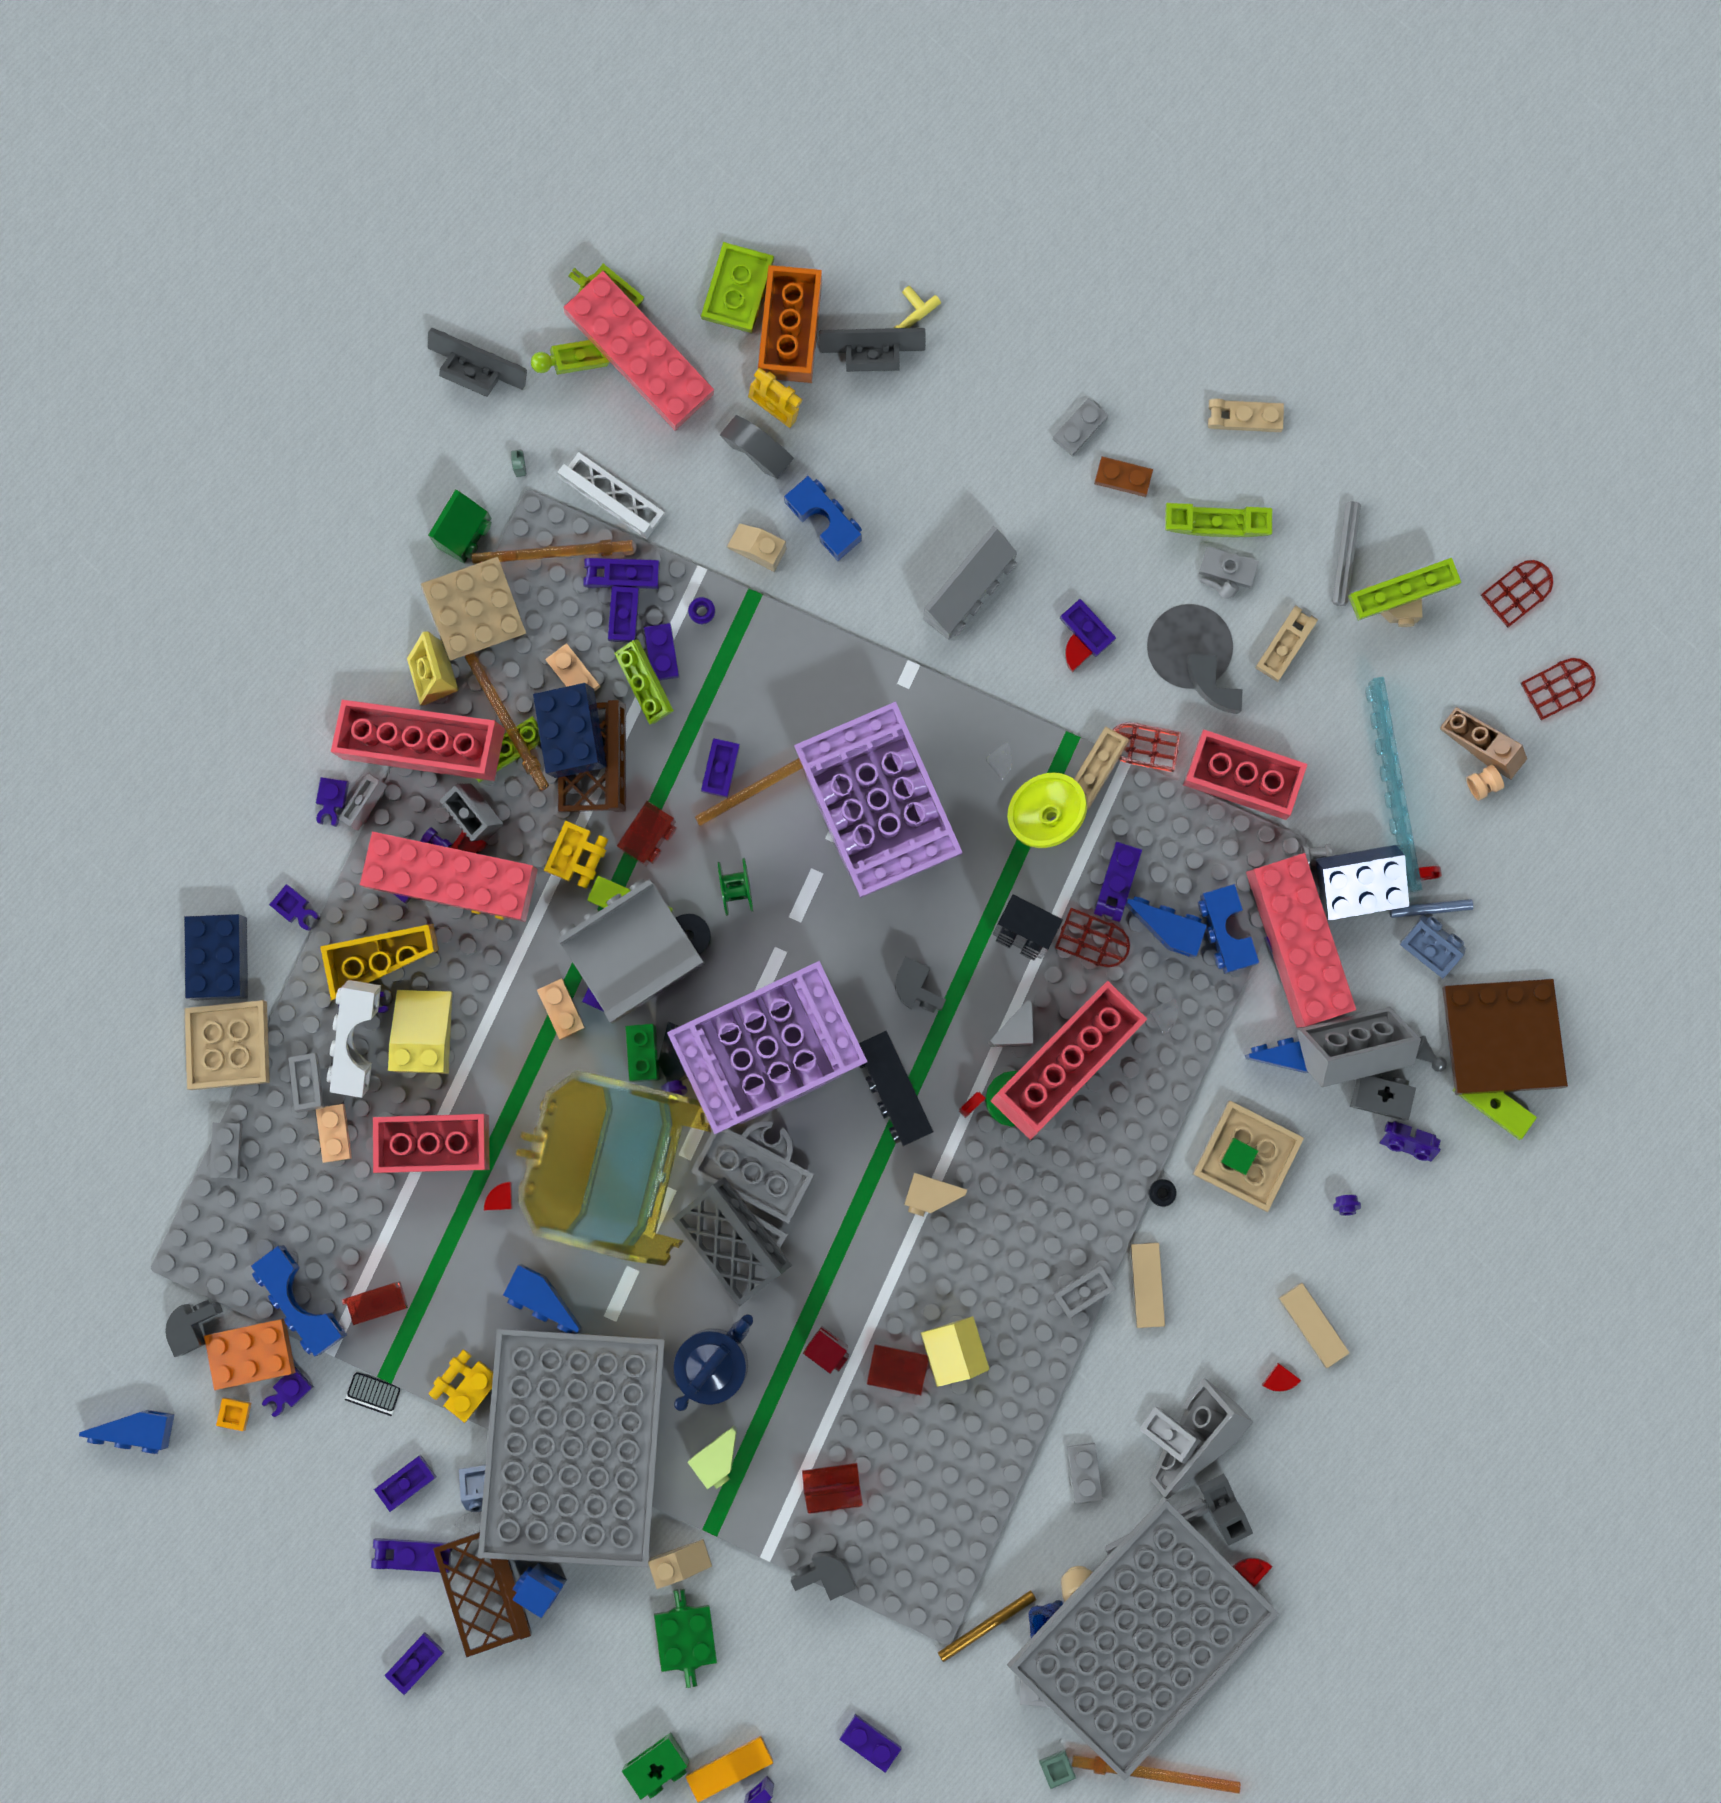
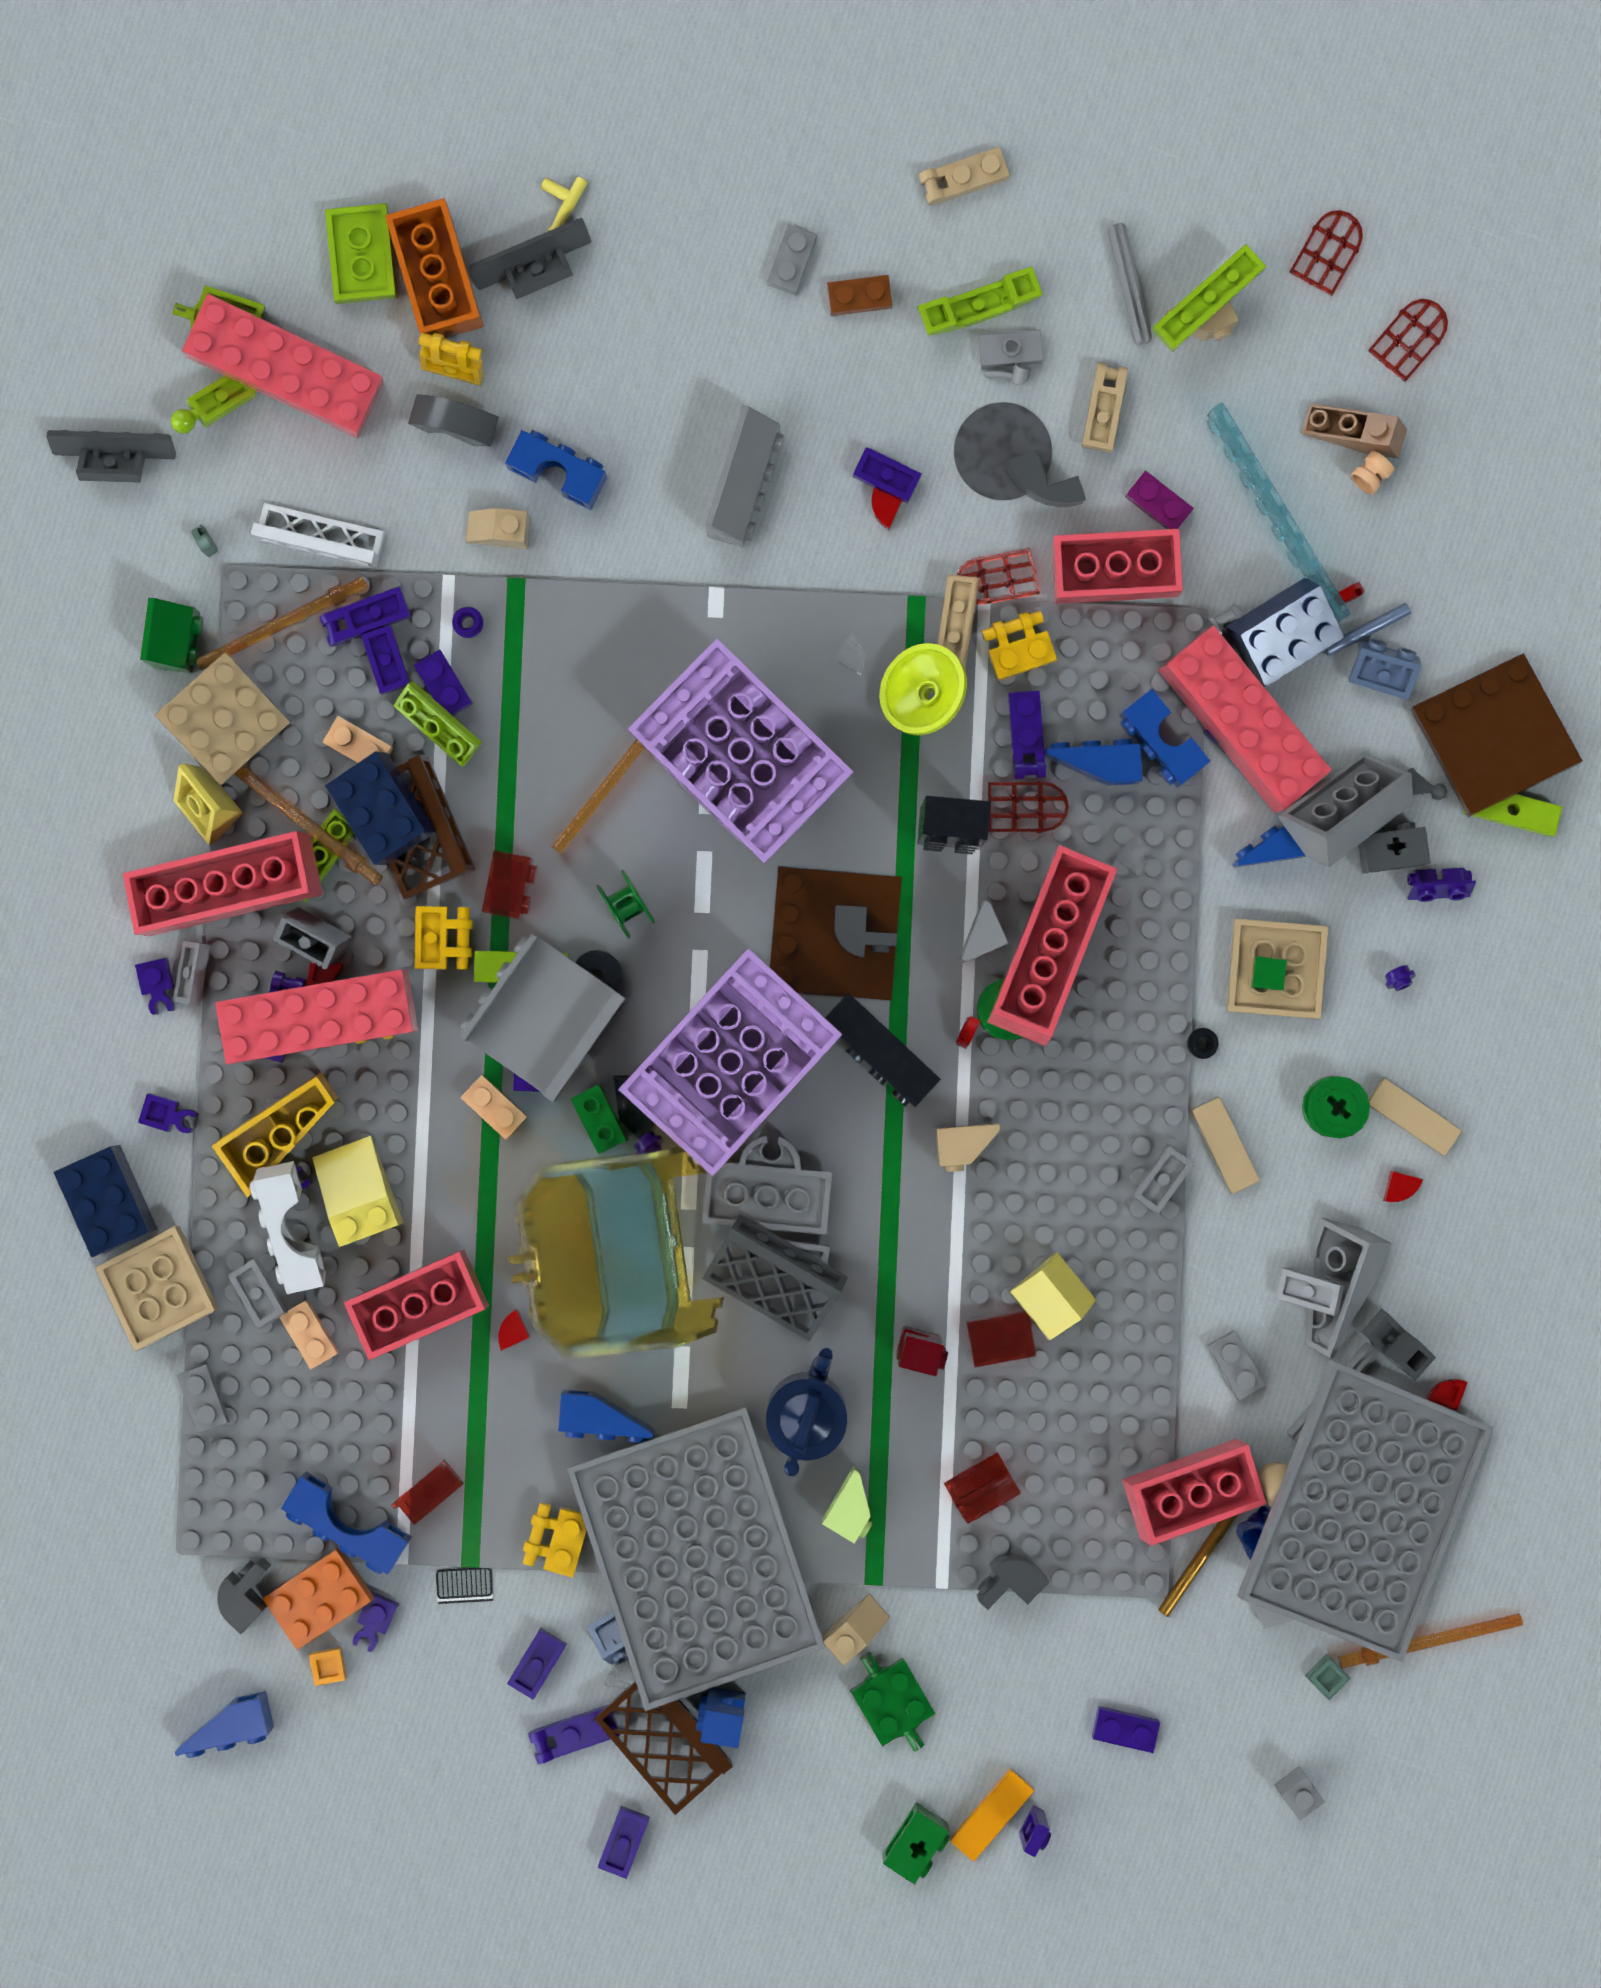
camera: 25 degrees left, 5 degrees up
(720, 768) = (557, 783): dark purple plate -> none
(869, 978) = (805, 939): none -> reddish brown plate
(1006, 1563) = (1194, 1491): none -> coral brick
(1140, 815) = (1021, 655): none -> yellow plate
(1267, 1293) = (1353, 1103): none -> green piece
(1301, 737) = (1159, 501): none -> magenta plate

